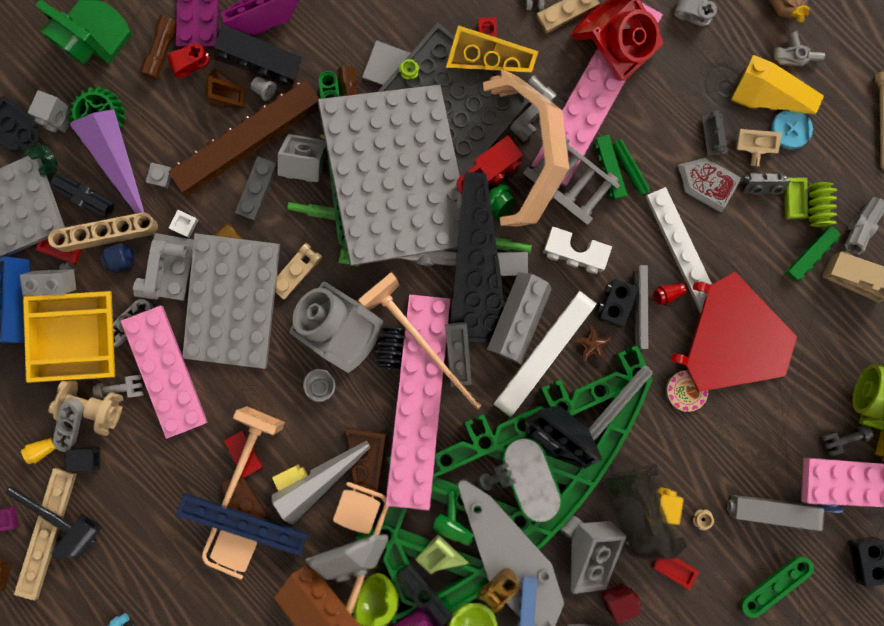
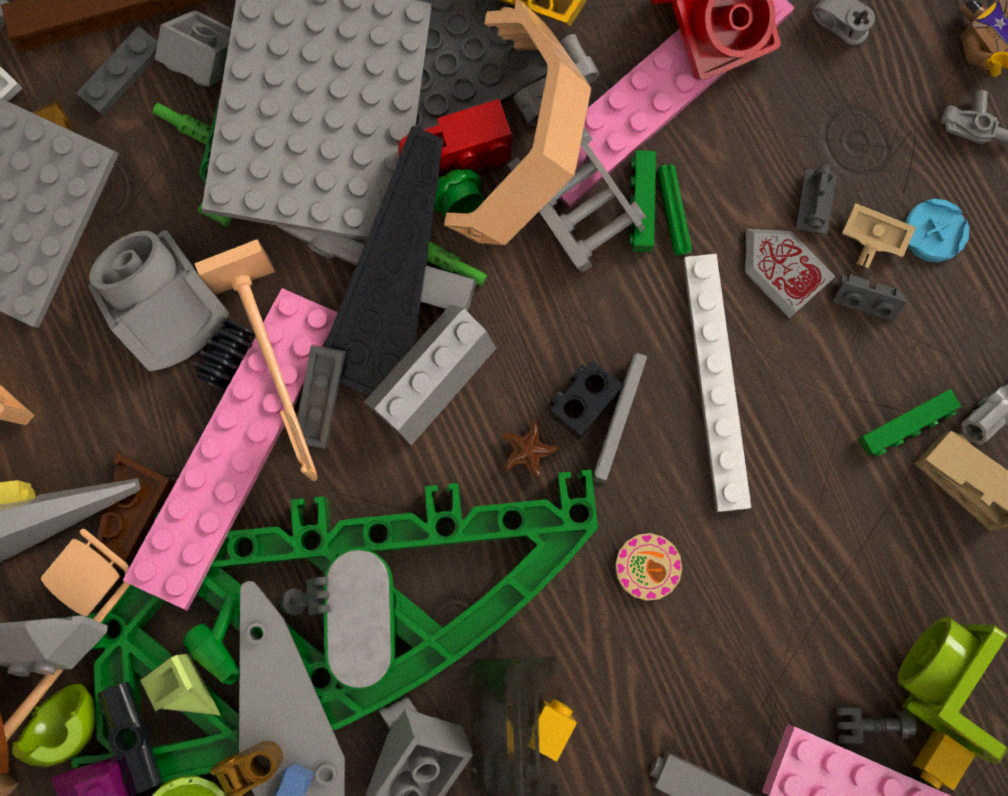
camera: 25 degrees right, 5 degrees down
(296, 271) = (131, 204): tan plate -> none
(319, 385) = (99, 375): light grey hair -> none
(544, 354) = (449, 439): white beam -> none
(559, 247) = (569, 322): white arch -> none
(562, 436) = (426, 564): black wedge -> none
(620, 401) = (510, 559): light grey axle -> none
(668, 293) = (667, 410): red cone -> none
(709, 520) = (607, 783): tan plate -> none
(736, 338) = (749, 510): red flag -> none
(774, 88) = (923, 158): yellow wedge -> none
(796, 199) = (911, 334): lime tile -> none
(821, 204) = (944, 353): lime piece -> none

